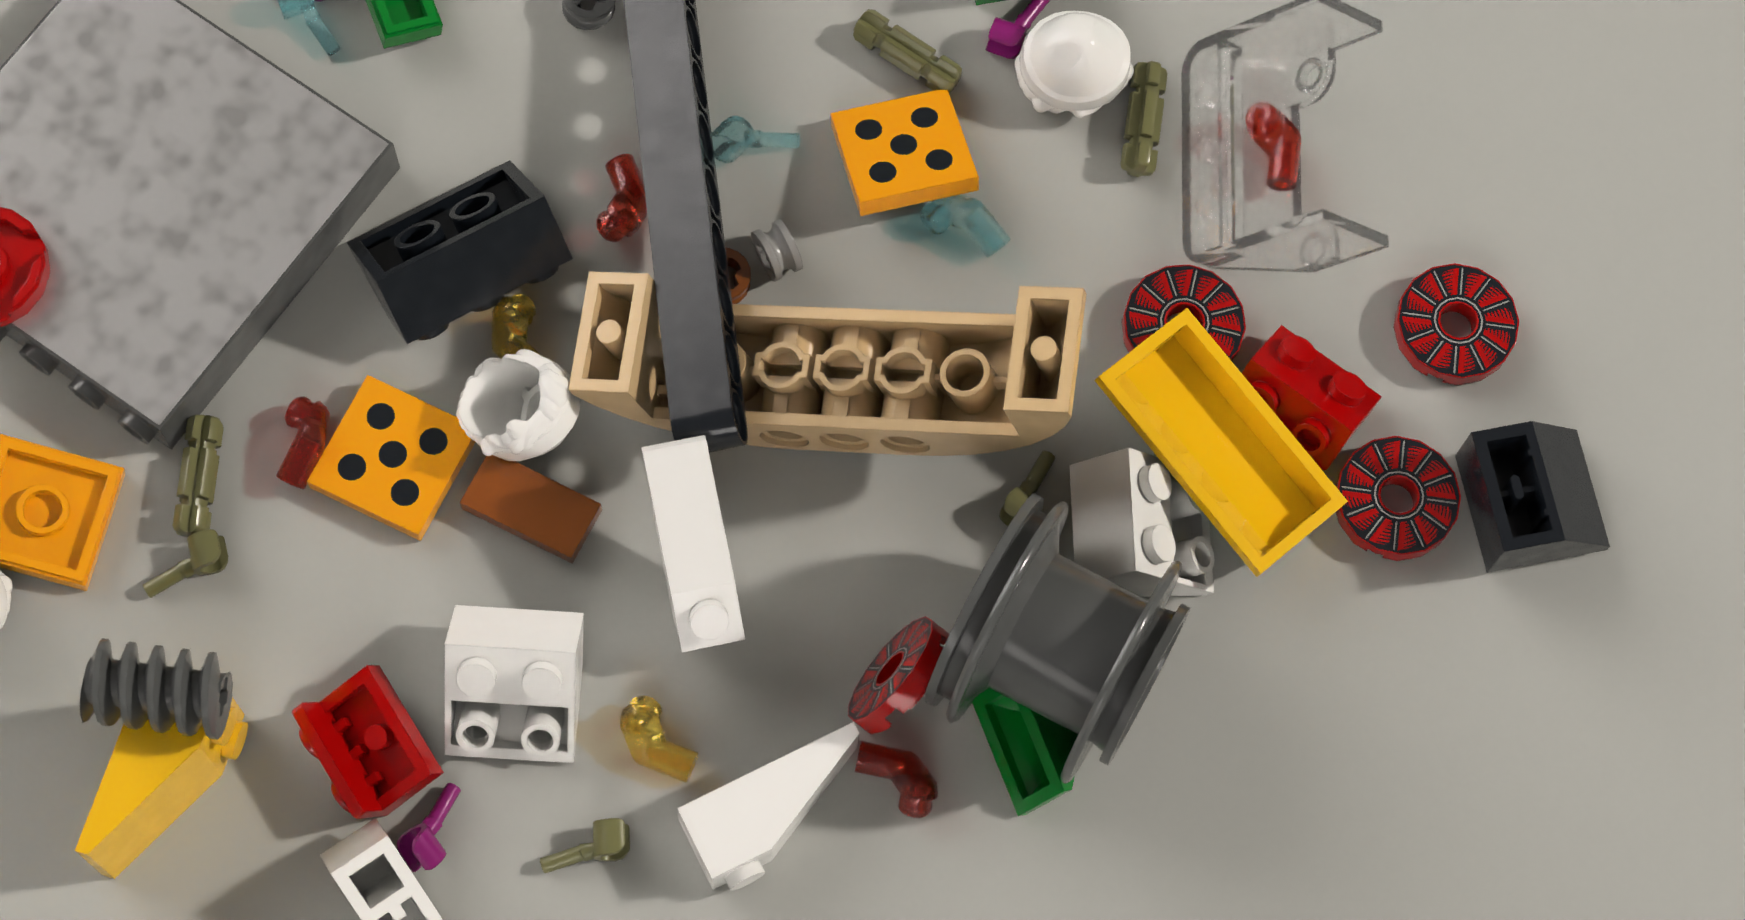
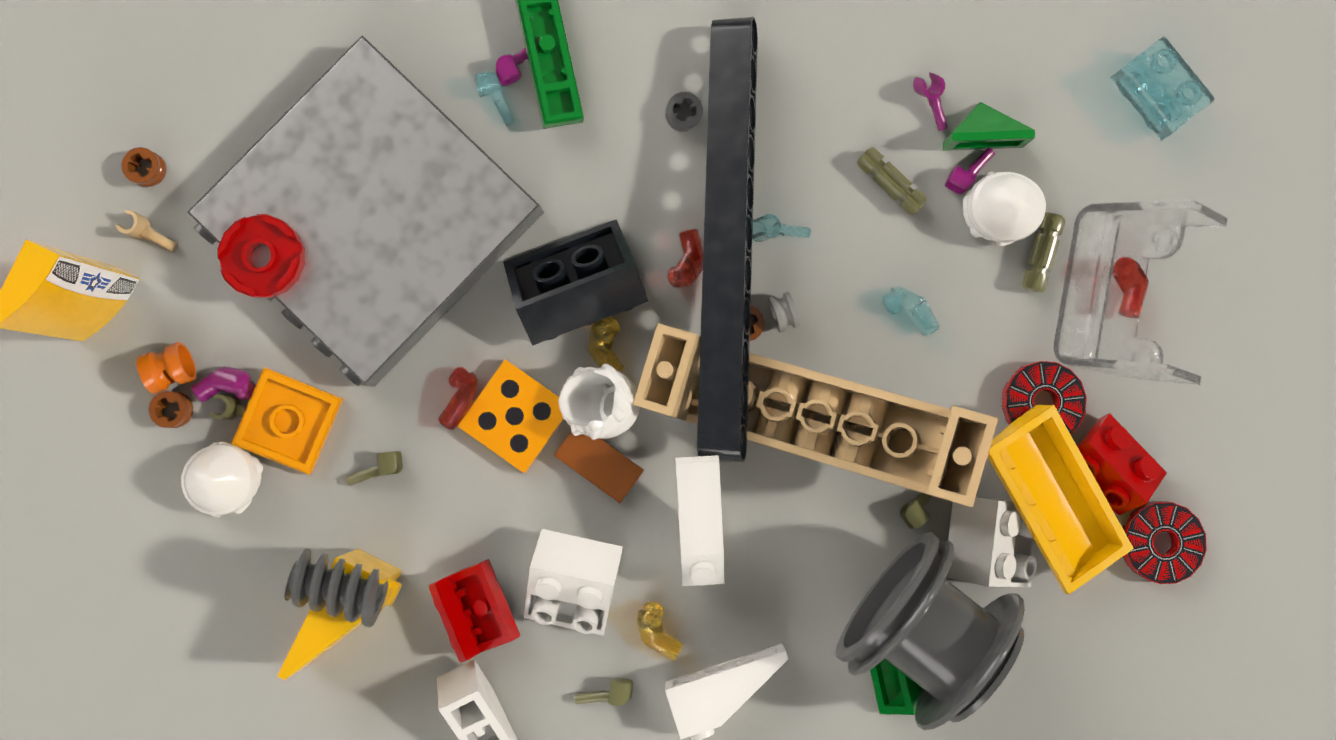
camera: 15 degrees right, 15 degrees up
(198, 474) = (388, 410): olive axle -> none
(418, 844) = (500, 676): magenta hand -> none
(897, 675) = (825, 606): red tile -> none
(904, 152) = (879, 255): light orange tile -> none
(906, 773) = (814, 679): clear red arm -> none
(1462, 291) = (1249, 424): tile -> none
(1530, 495) = (1252, 561): black slope -> none

